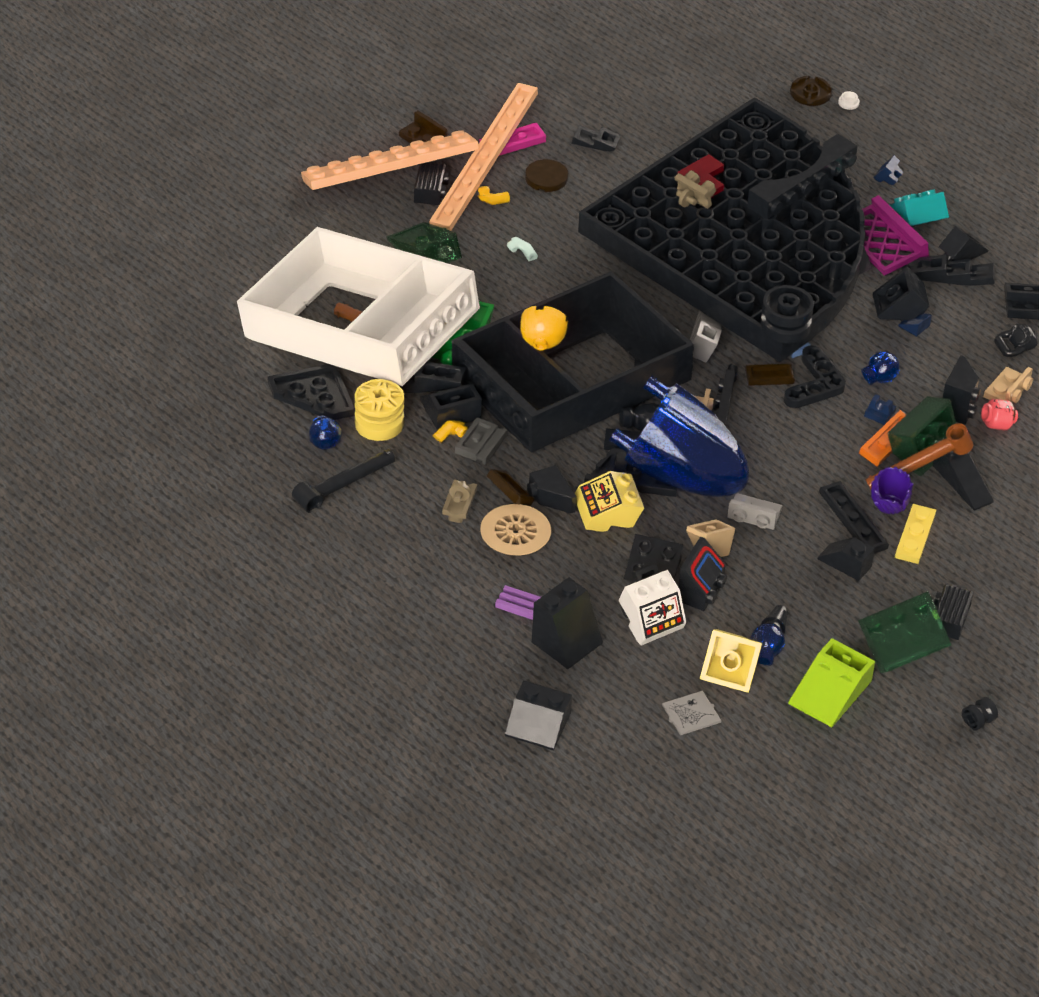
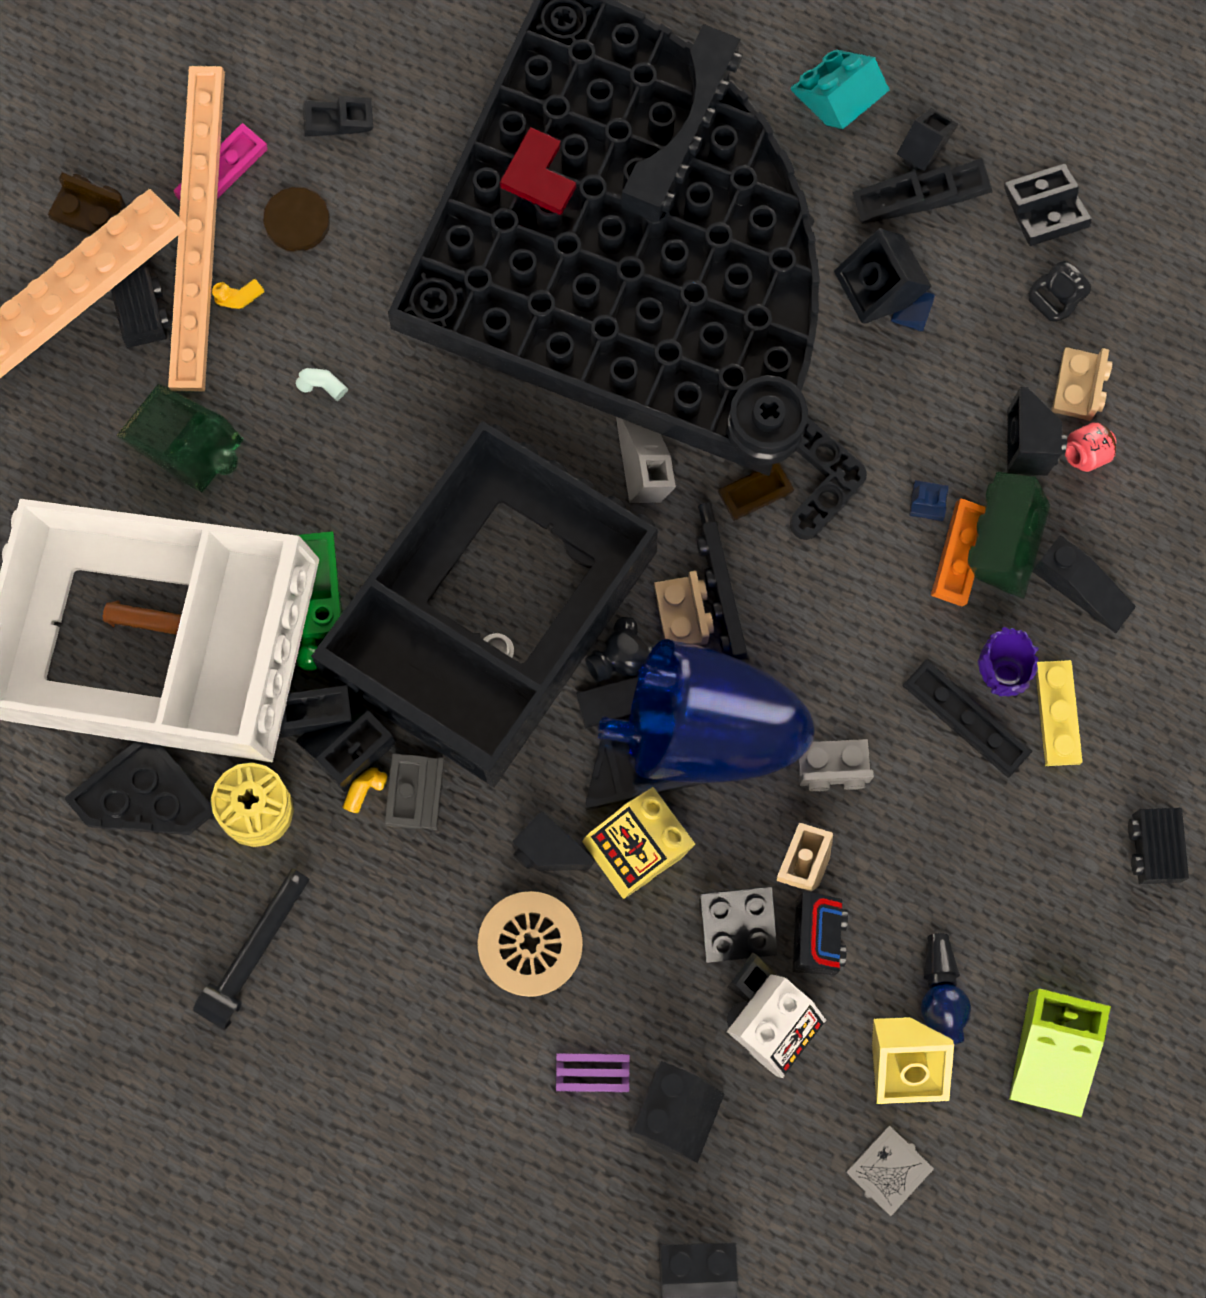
camera: 25 degrees left, 30 degrees up
(325, 432) = (190, 873): clear blue piece -> none
(459, 500) = (433, 925): dark tan hips -> none
(510, 487) = (491, 866): dark brown tile -> none
(543, 327) = (442, 606): yellow cylinder -> none
(692, 193) = (554, 218): dark tan hips -> none
(849, 557) = (989, 801): black slope -> none
(881, 368) = (906, 424): clear blue piece -> none
(889, 171) = (769, 24): dark blue tile -> none
(898, 229) = (835, 145): magenta fence -> none
(904, 632) = (1123, 926): clear green slope -> none
(957, 440) = (1028, 596): dark orange piece -> none

